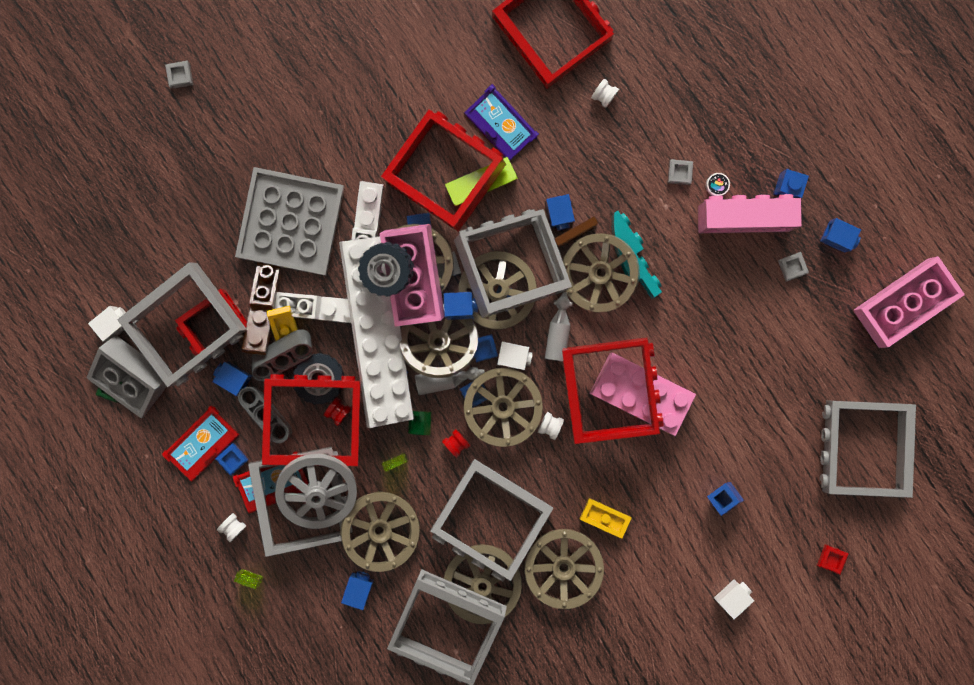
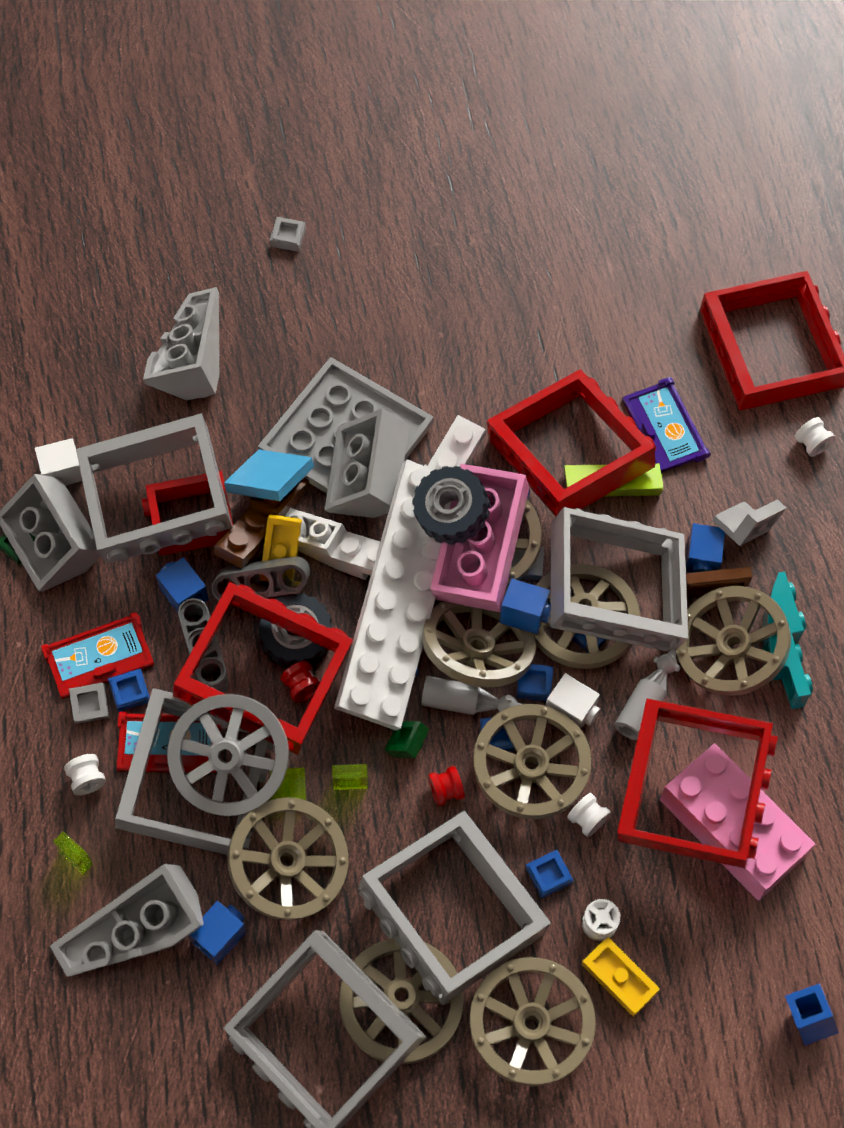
camera: 25 degrees right, 25 degrees down
(156, 205) = (190, 352): none -> light grey wedge
(211, 479) = (89, 703): none -> light grey tile
(253, 280) = (269, 475): none -> dark azure tile
(311, 603) = (138, 922): none -> light grey wedge
(314, 245) = (366, 465): none -> light grey slope
(363, 480) = (293, 784): none -> clear neon green tile
(540, 470) = (549, 874): none -> blue tile
(580, 180) = (745, 523): none -> light grey panel
(583, 491) = (604, 913): none -> white wheel

